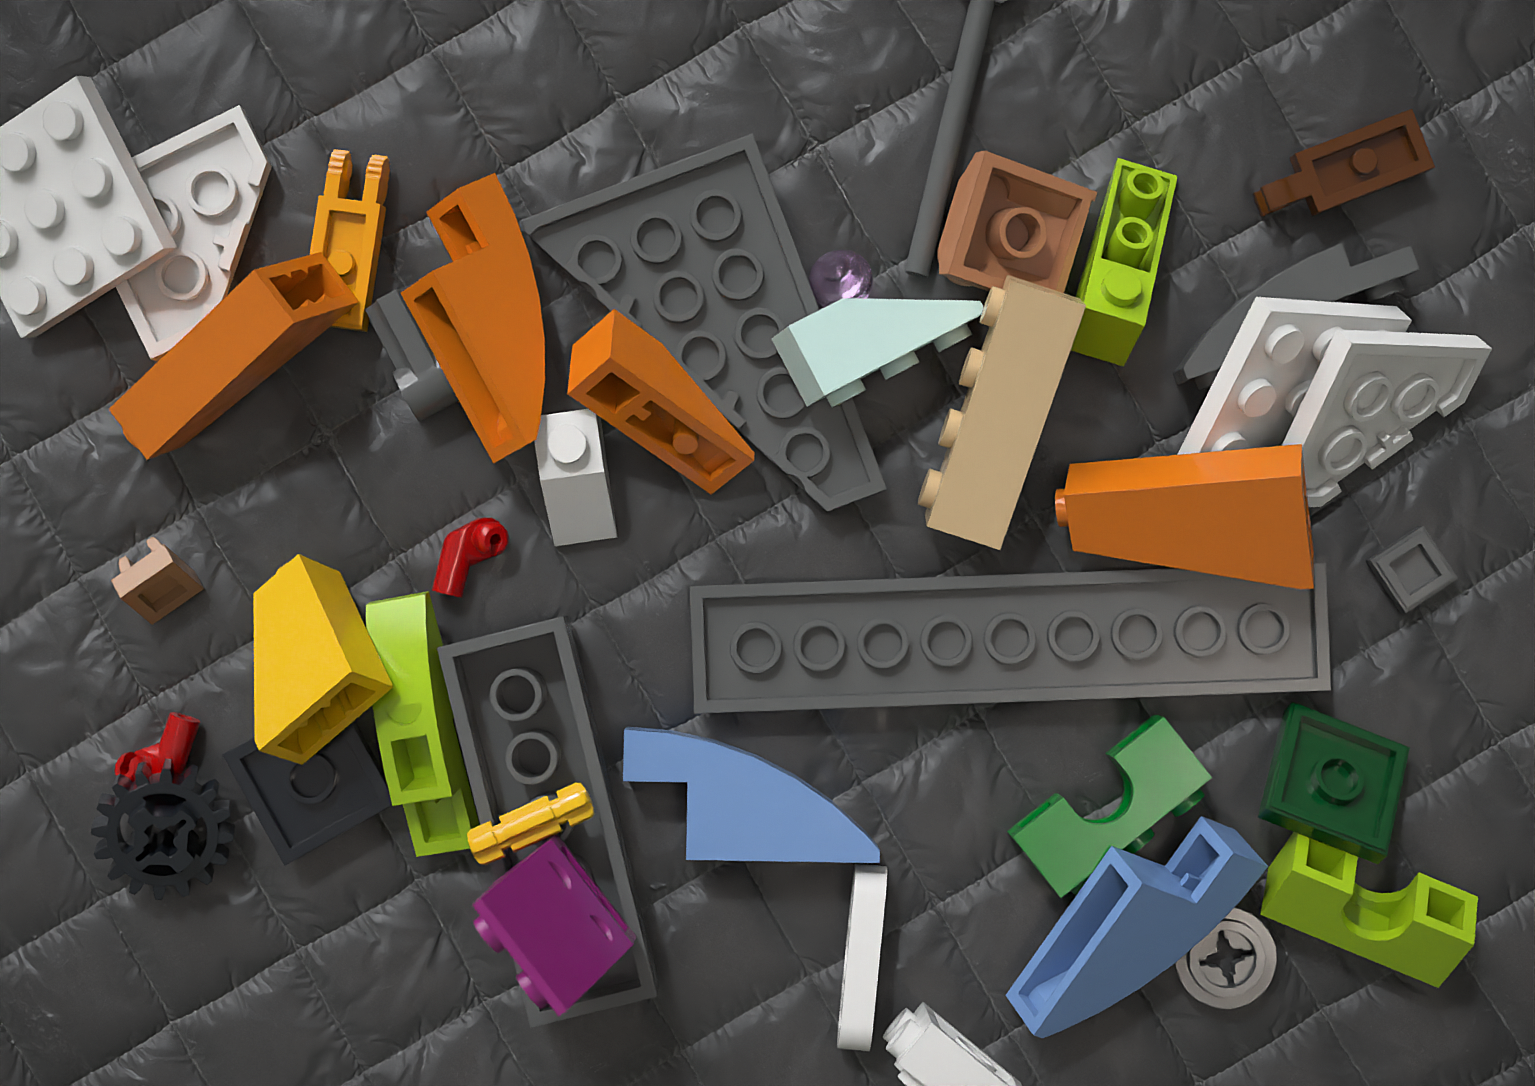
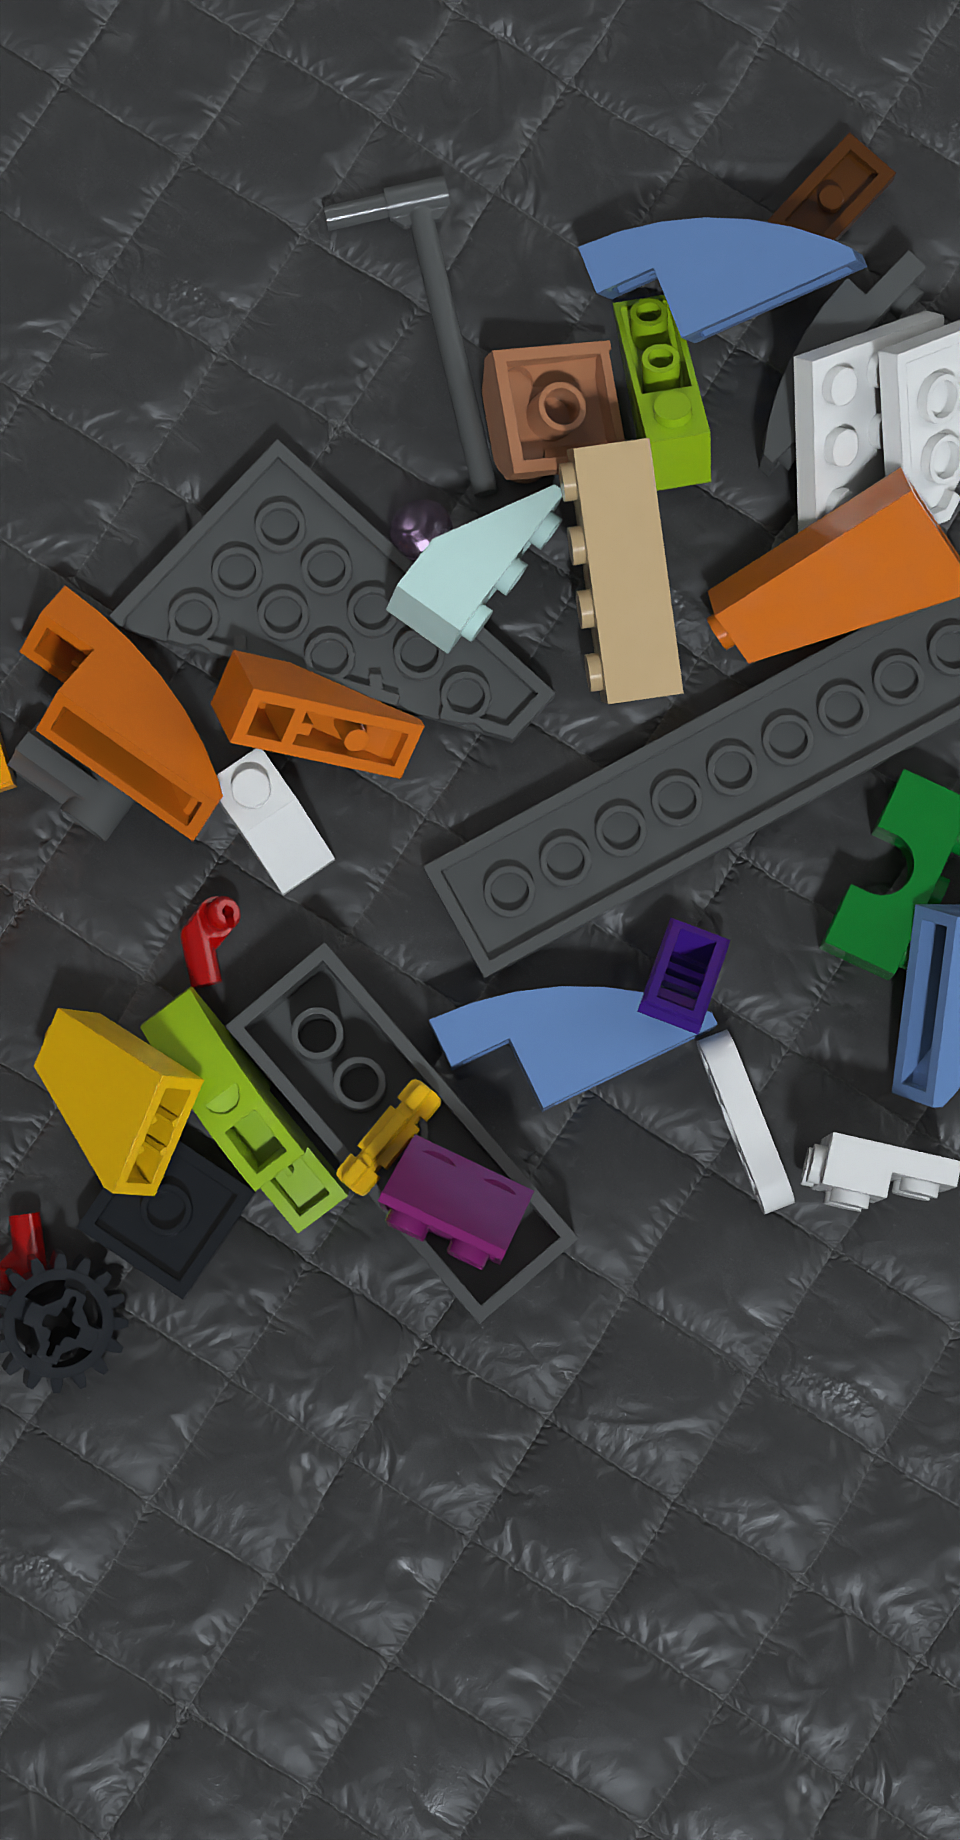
camera: 25 degrees left, 5 degrees down
(898, 786) = (683, 976): none -> dark purple slope
(1228, 176) = (717, 268): none -> medium blue slope

